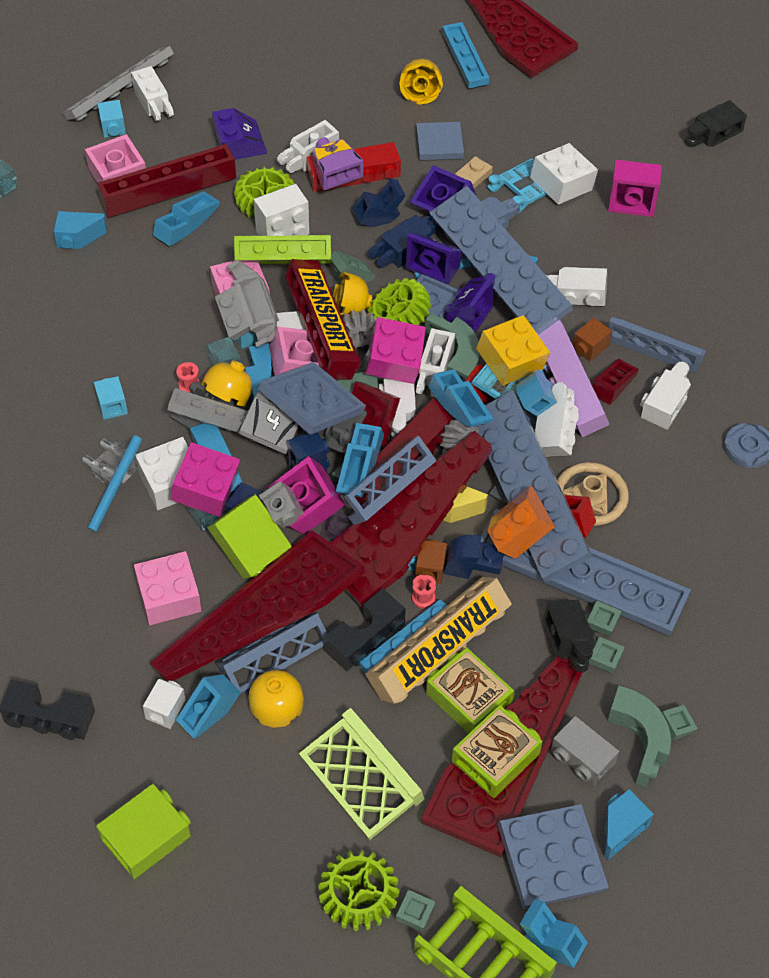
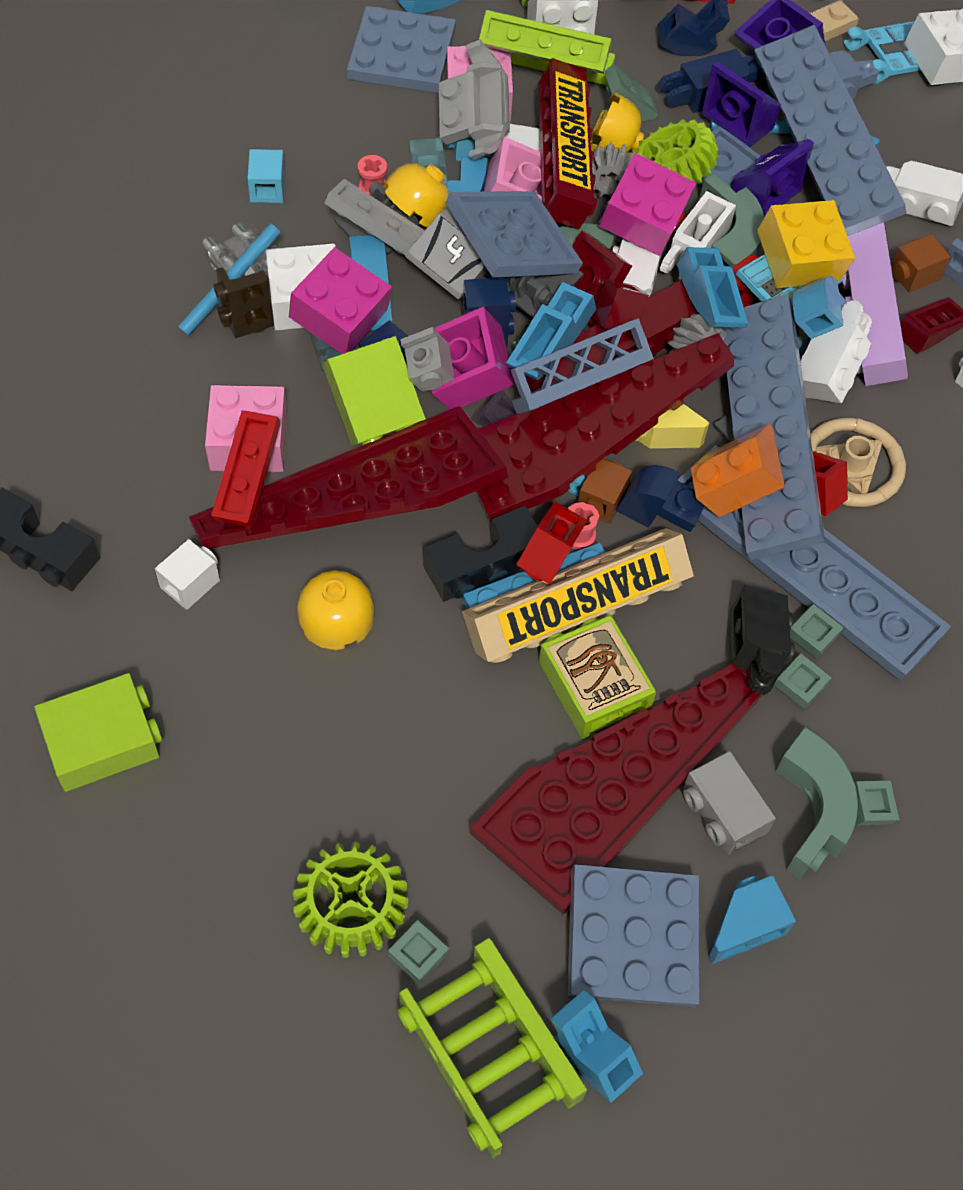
camera: 15 degrees right, 5 degrees up
(132, 499) = (244, 302): none -> dark brown bracket
(172, 274) = (401, 49): none -> sand blue plate
(183, 617) = (246, 468): none -> red plate
(207, 704) = (243, 591): dark azure slope -> none
(270, 642) = (351, 535): sand blue fence -> none
(379, 757) = (446, 740): yellowish green fence -> none
(399, 428) = (619, 304): none -> dark red panel
(411, 609) = (551, 543): none -> red slope
(497, 750) = (604, 766): brick -> none

